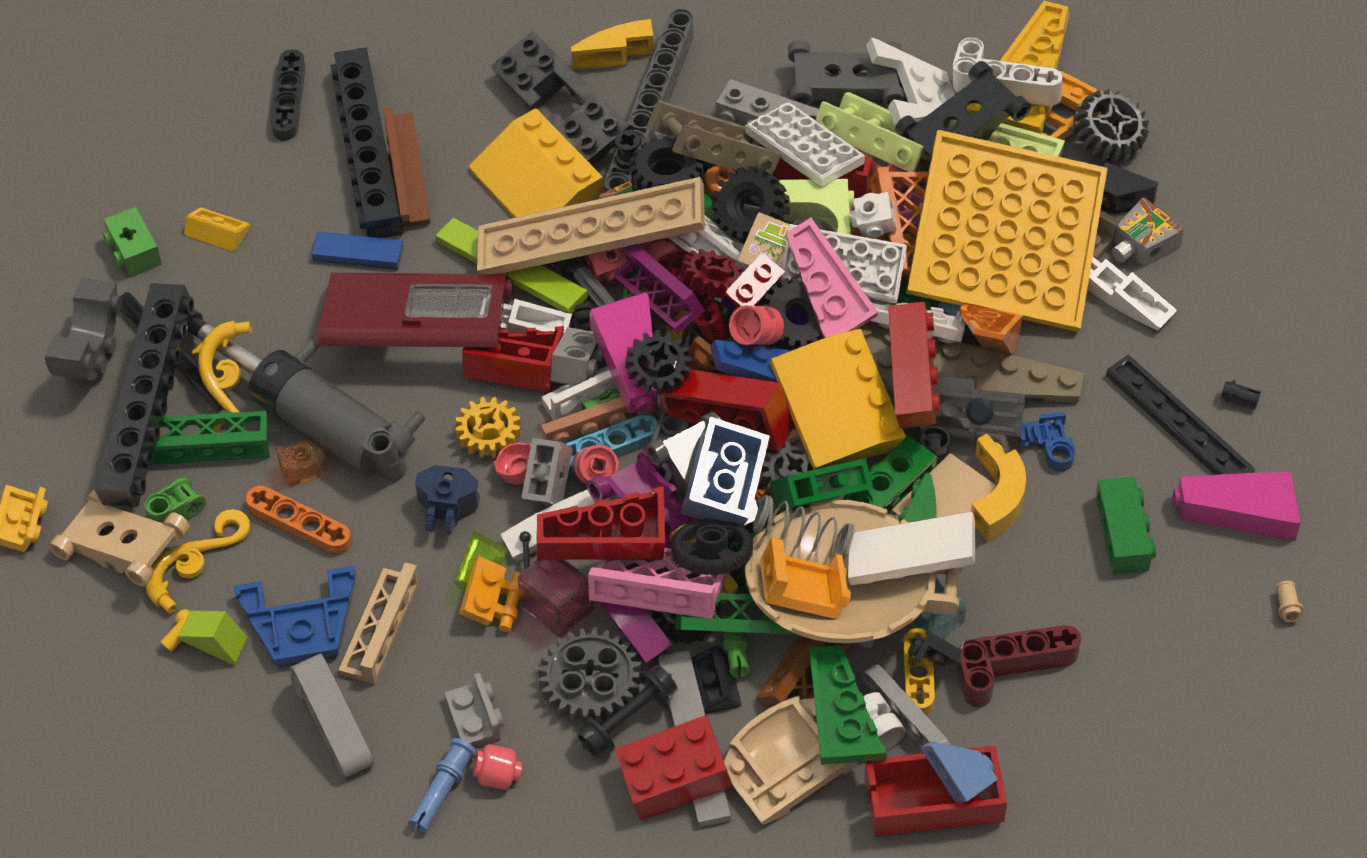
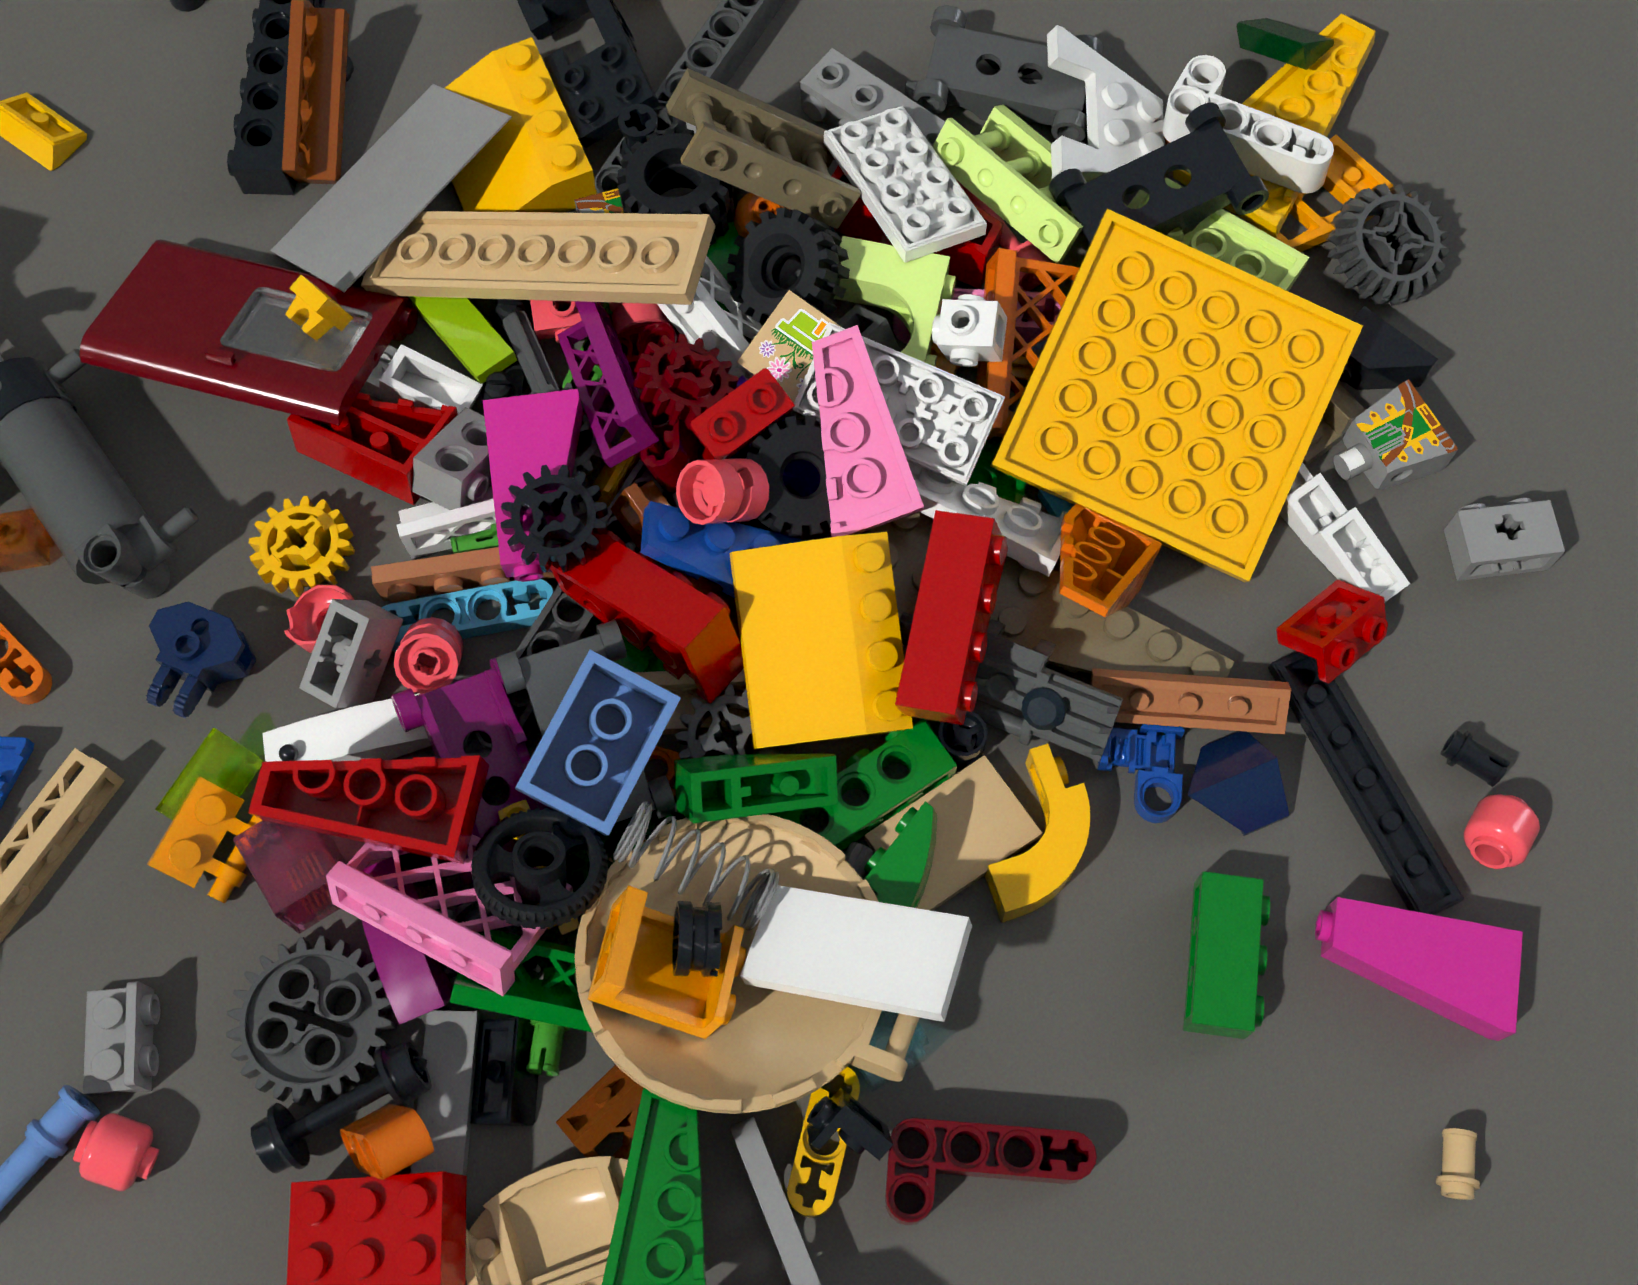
camera: 15 degrees right, 15 degrees up
(357, 250) = (219, 208): blue tile -> none
(460, 281) = (318, 307): none -> yellow tile
(472, 212) = (389, 186): none -> light grey piece
(667, 708) = (387, 1141): none -> orange beam
(817, 560) = (696, 939): none -> black wheel
(888, 725) = (727, 1231): white wheel -> none
(1011, 24) = (1282, 42): none -> dark green slope
(1071, 394) = (1197, 700): none -> nougat plate
(1109, 435) = (1240, 782): none -> dark blue slope
(1140, 339) = (1336, 628): none -> red bracket
(1225, 275) = (1503, 539): none -> light grey brick
(1266, 427) = (1501, 831): none -> coral head

